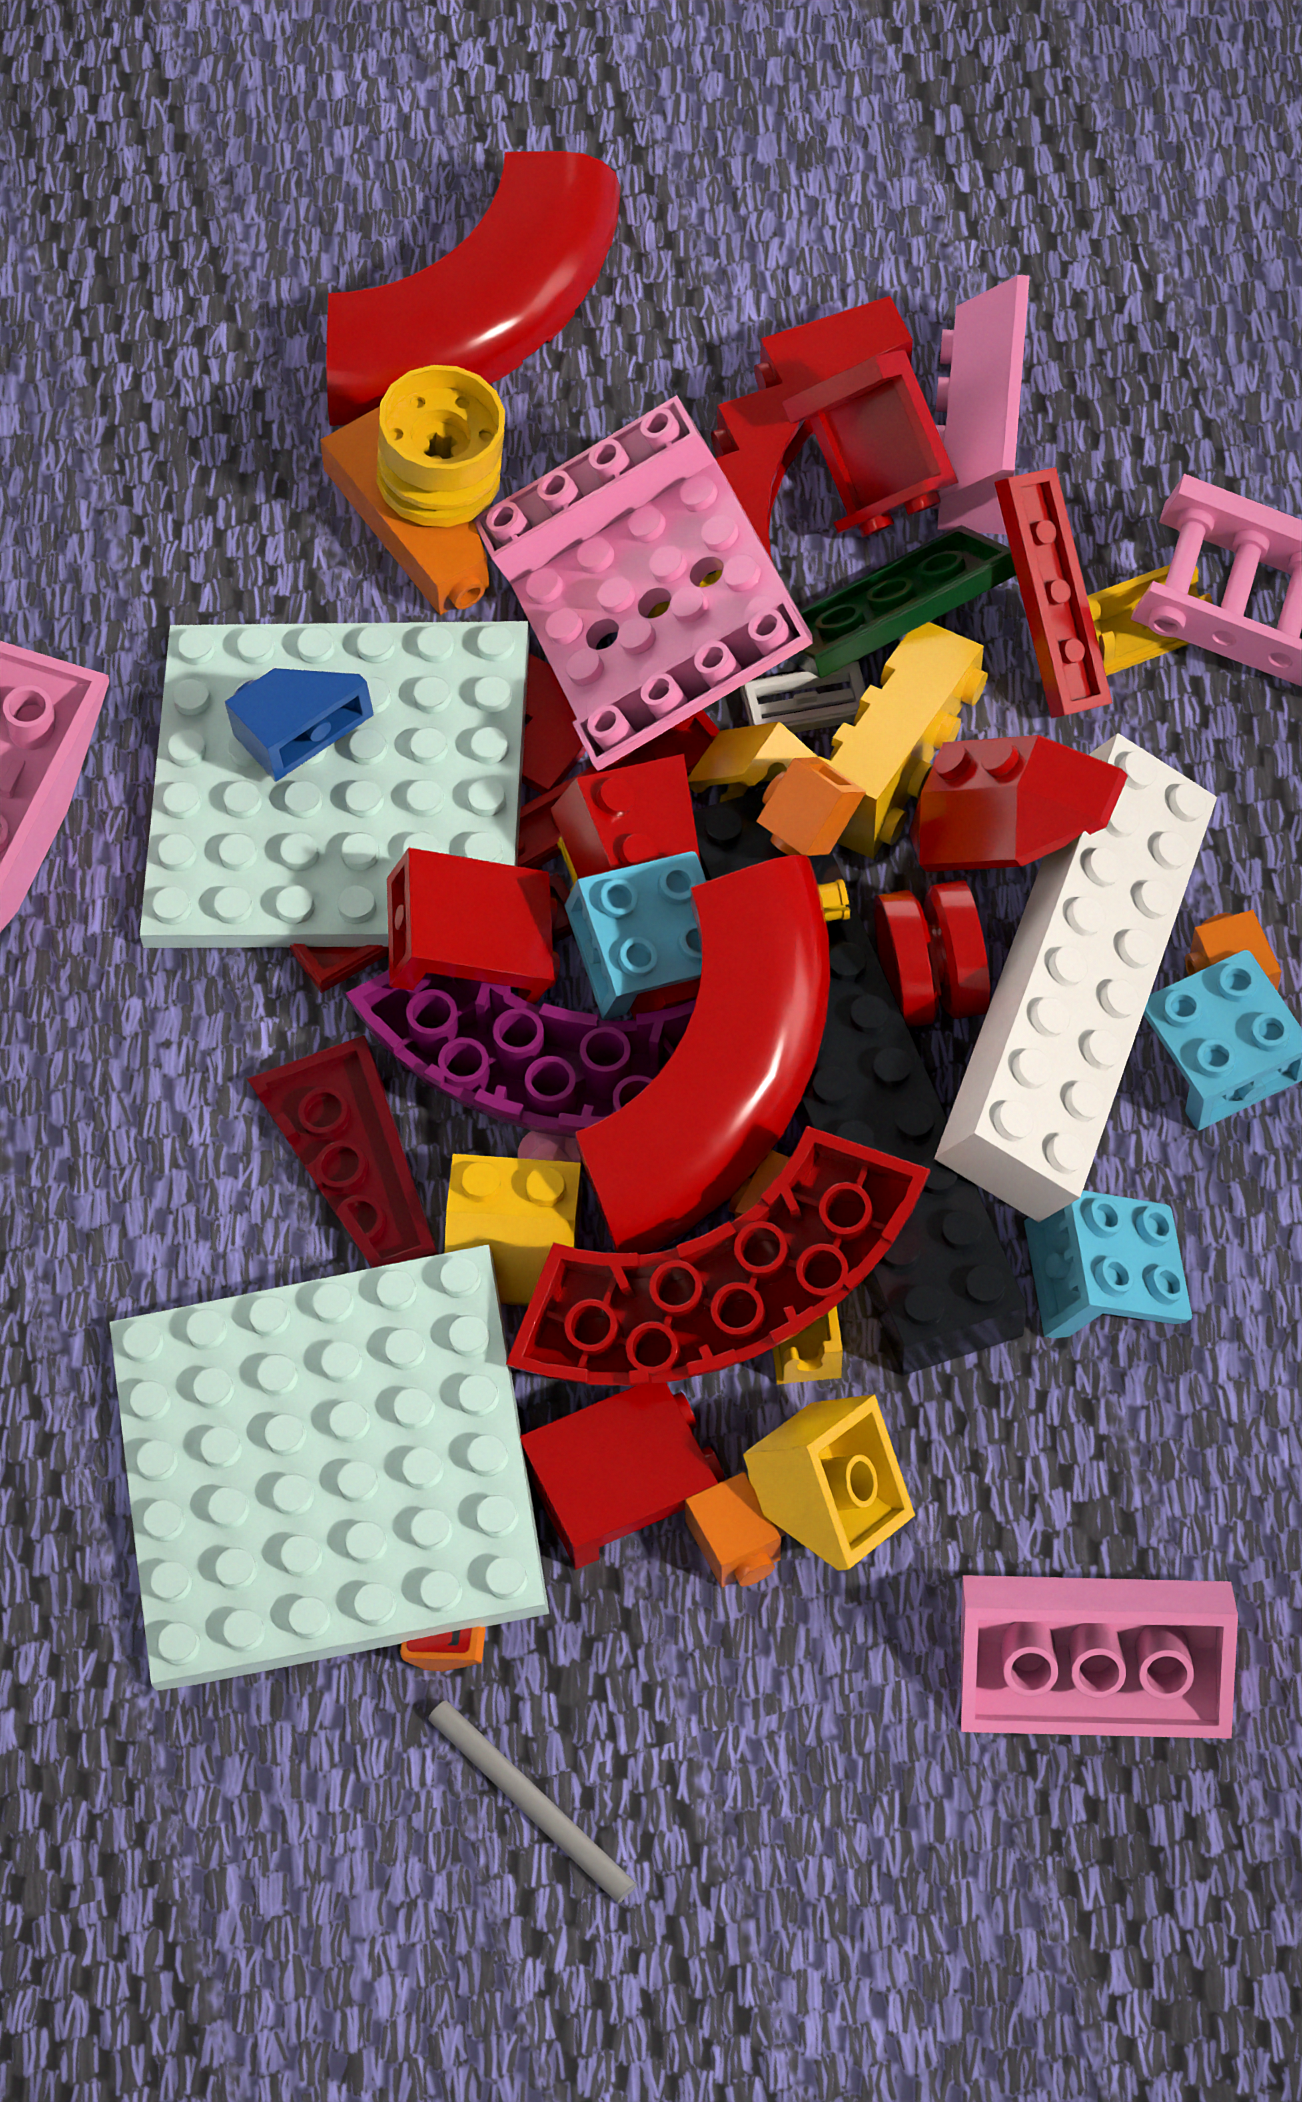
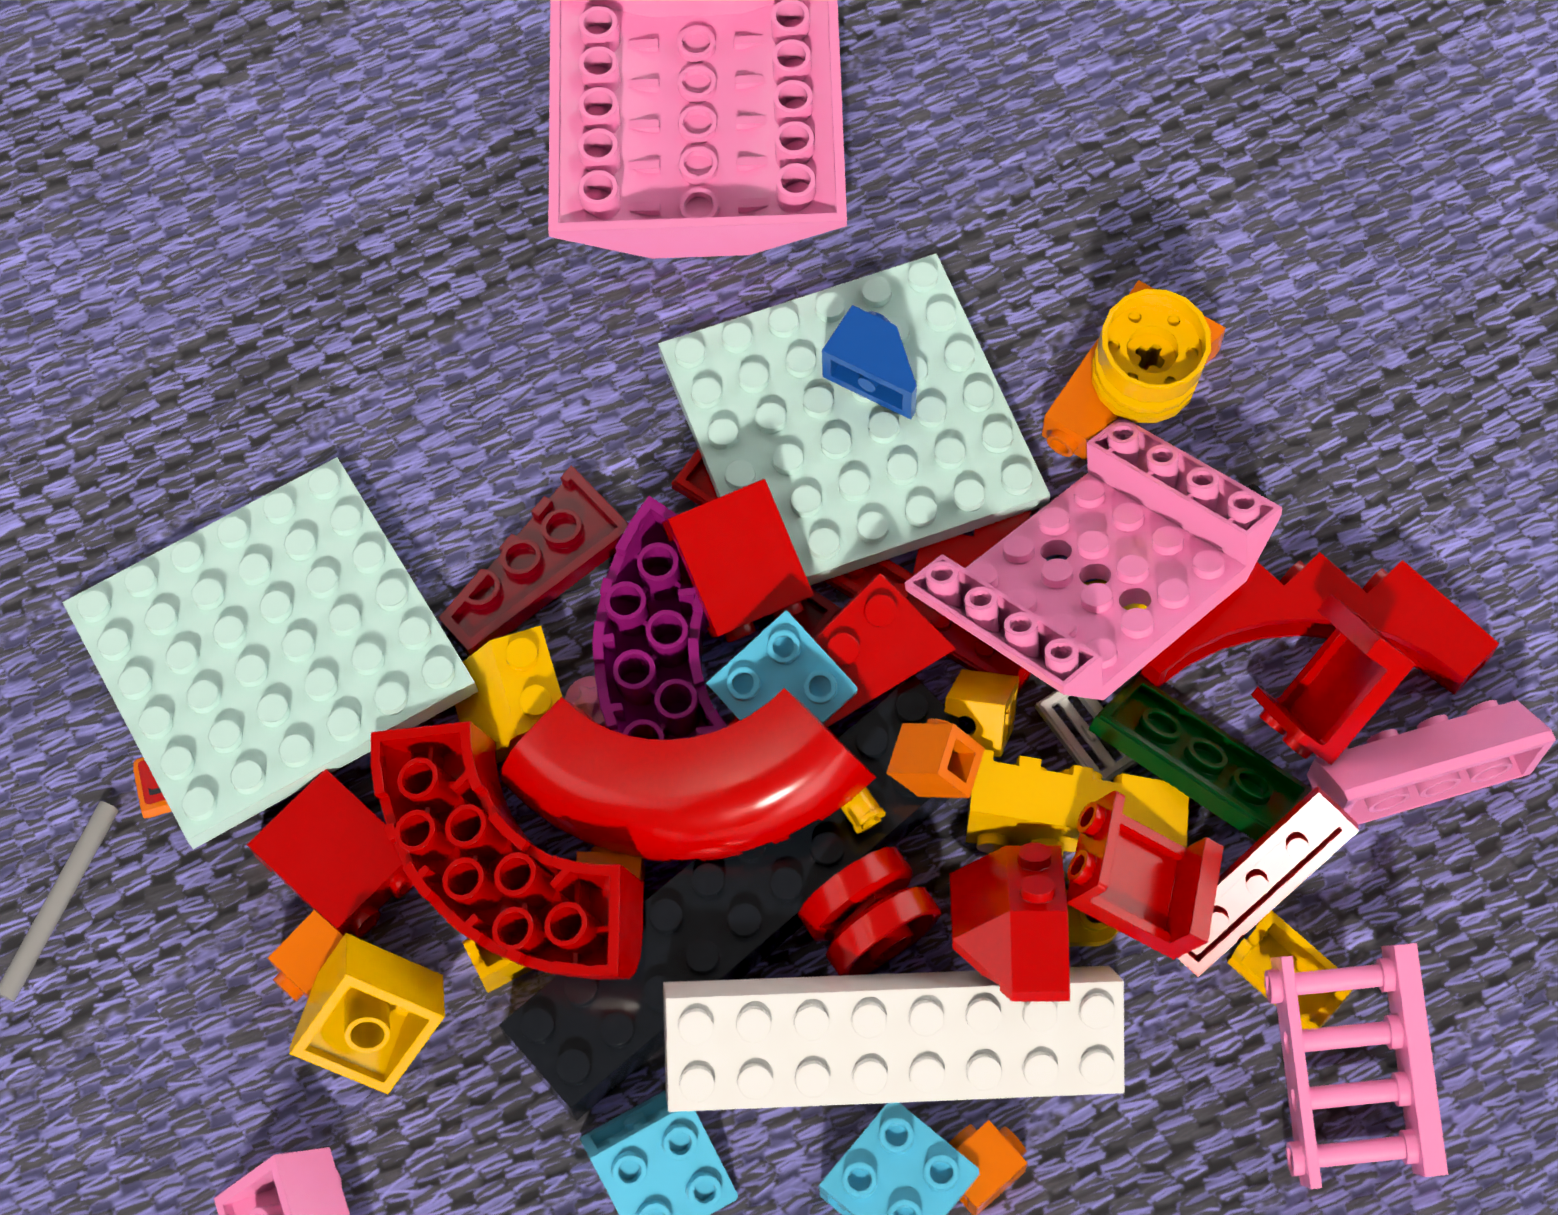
camera: 70 degrees right, 5 degrees up
(489, 296) = (1346, 349): red brick -> none
(1018, 681) = (1143, 879): none -> red panel

